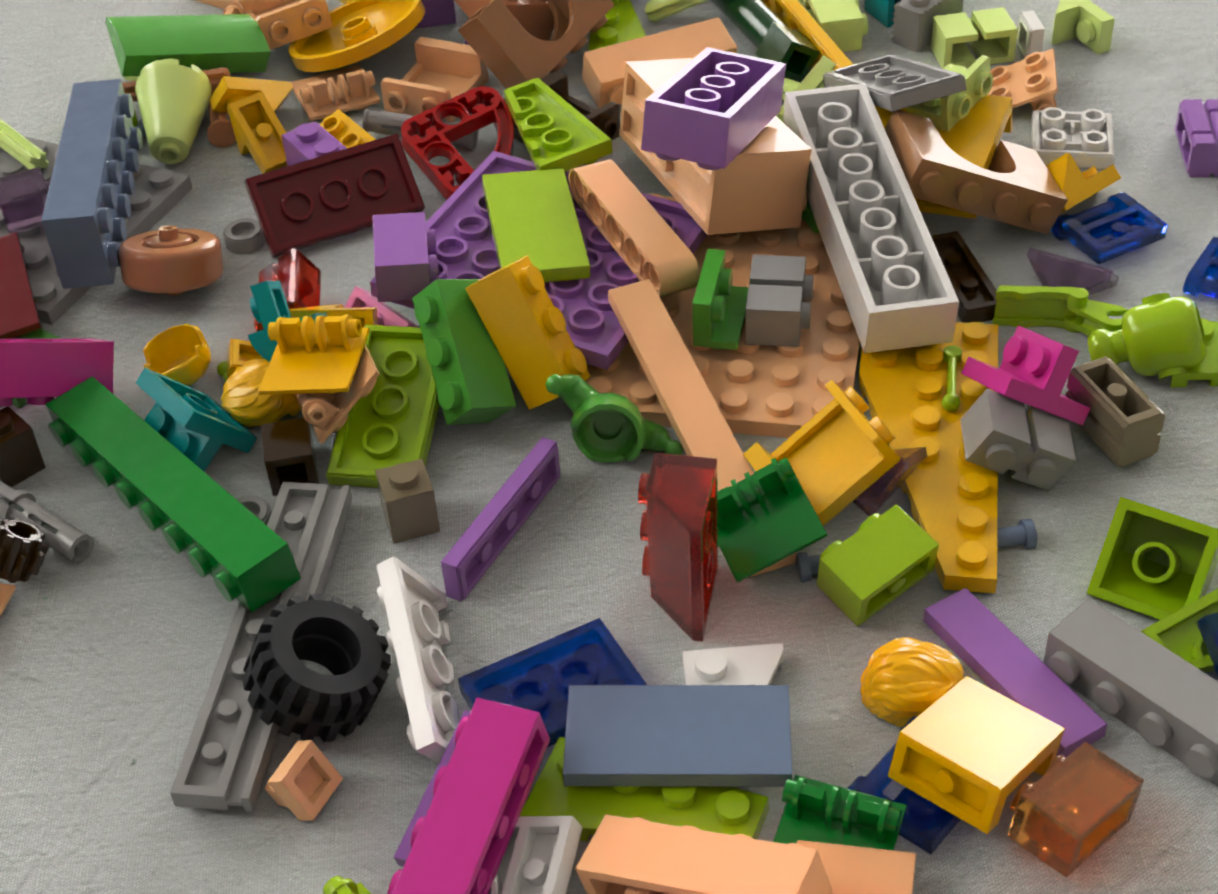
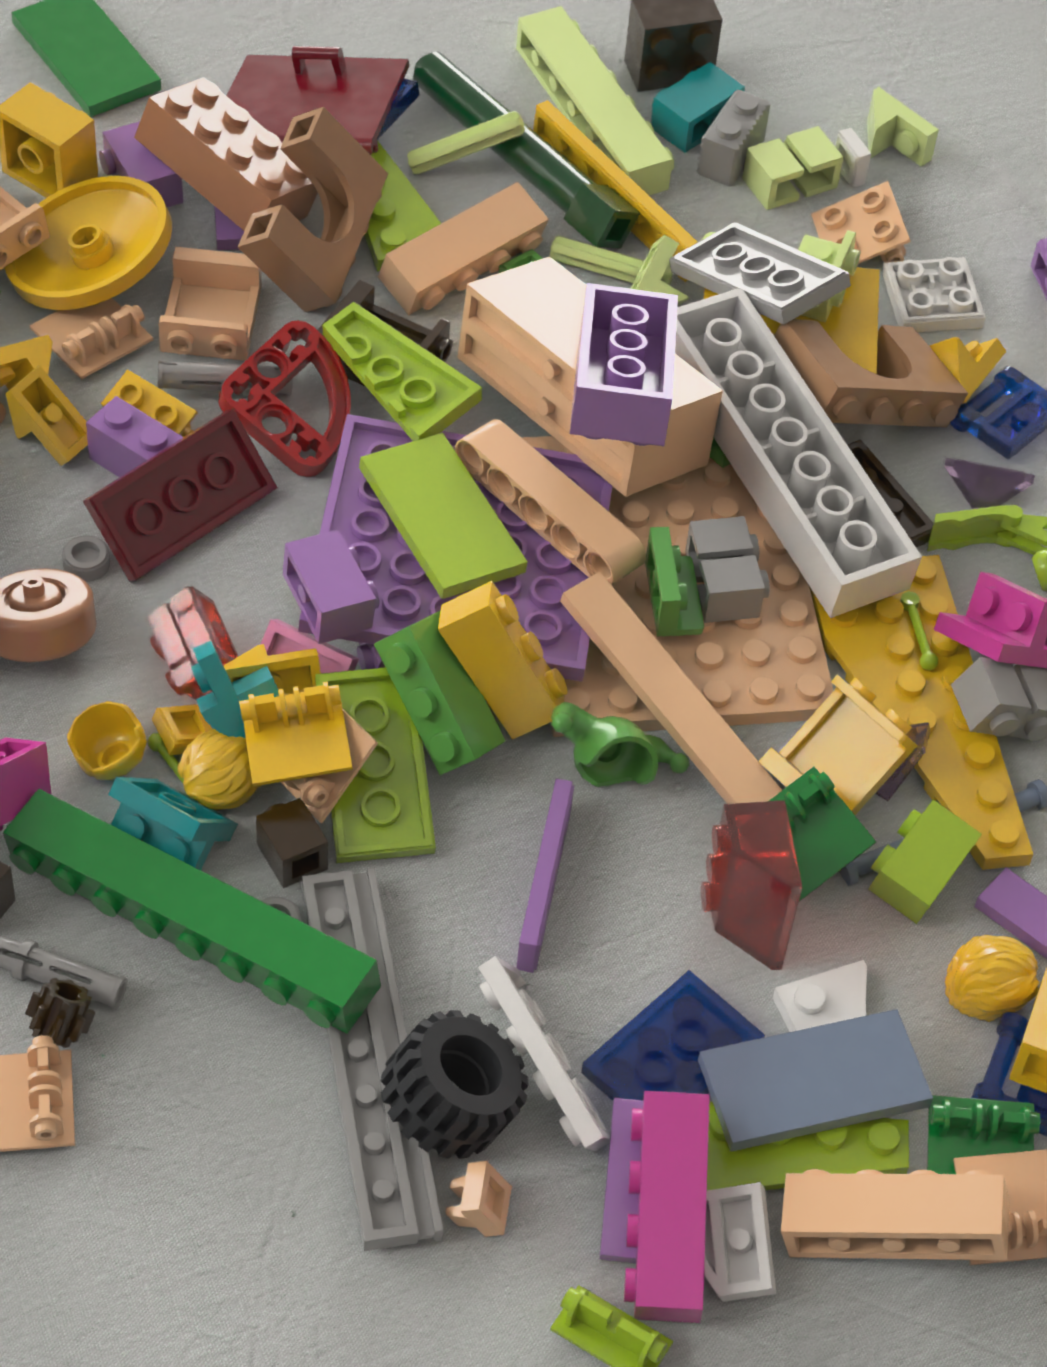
camera: 25 degrees left, 10 degrees up
(407, 500) = (443, 874): dark tan brick -> none

